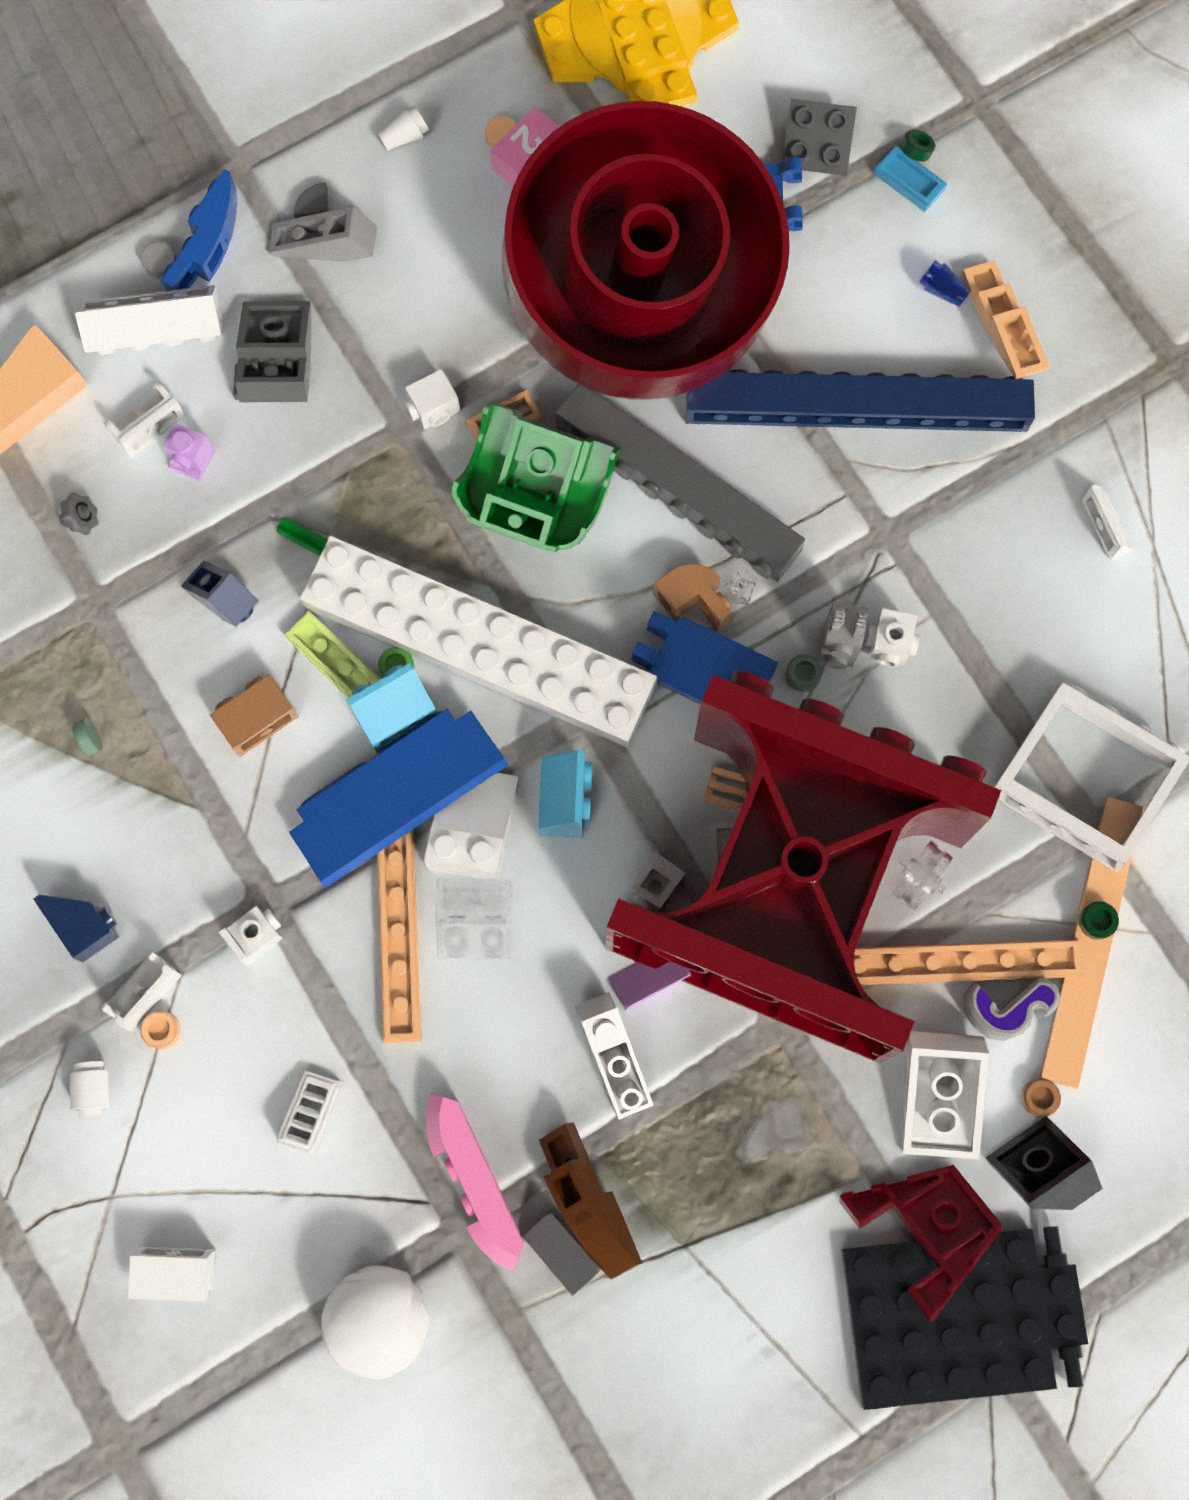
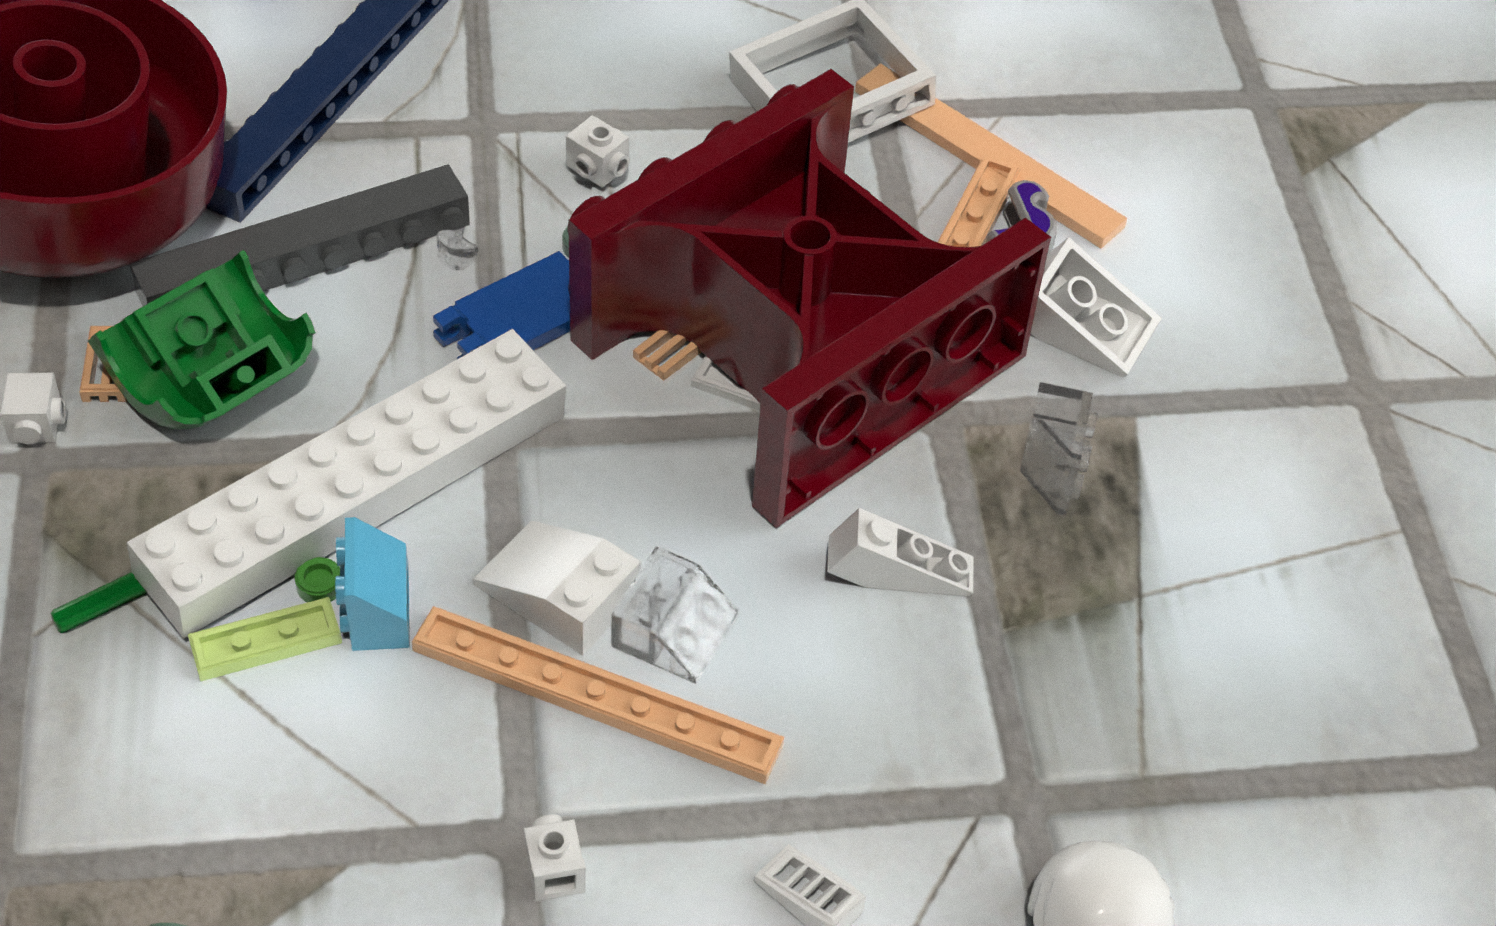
camera: 70 degrees left, 25 degrees down
(220, 593) = (94, 711): slope -> none
(253, 714) = (277, 741): medium nougat brick -> none
(394, 792) = (477, 633): blue slope -> none
(496, 1228) = (979, 744): bright pink brick -> none
(561, 1253) = (1098, 700): dark grey slope -> none
(562, 794) = (586, 470): medium azure slope -> none
(586, 1209) = (1054, 644): reddish brown slope -> none
(643, 982) = (835, 502): lavender slope -> none
(659, 871) = (734, 448): white brick -> none
(693, 586) = (432, 278): medium nougat brick -> none
(843, 635) = (569, 170): light grey hinge -> none
(944, 1219) = (1211, 358): dark red wing -> none
(986, 1338) = (1313, 400): black plate -> none
(1040, 1097) = (1122, 251): medium nougat tile -> none
(1046, 1168) = (1192, 264): black slope -> none
(1098, 920) = (973, 133): dark green tile -> none

